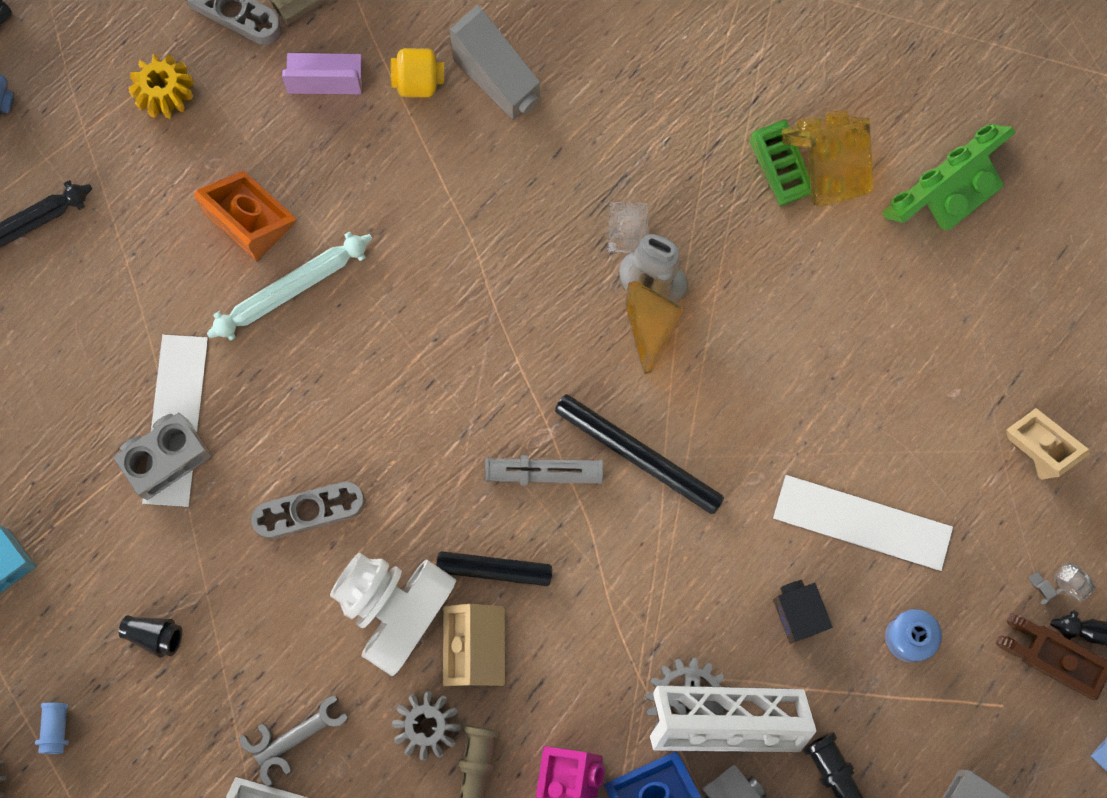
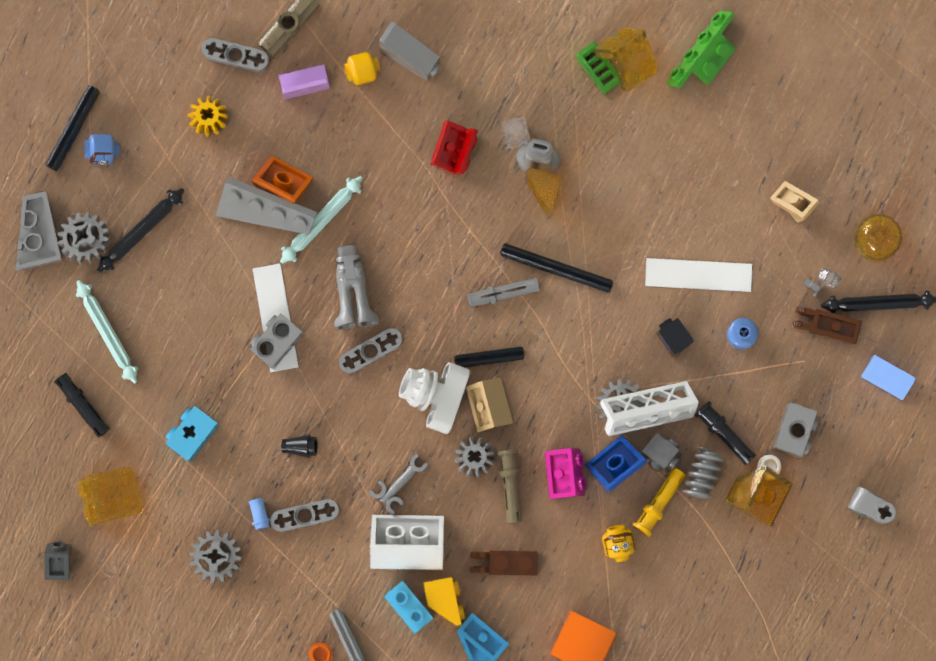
camera: 15 degrees left, 5 degrees up
(96, 738) = (288, 525): none -> light grey beam
(194, 239) = (259, 207): none -> light grey wing
(310, 384) = (352, 276): none -> light grey piece
(525, 227) = (454, 148): none -> red bracket

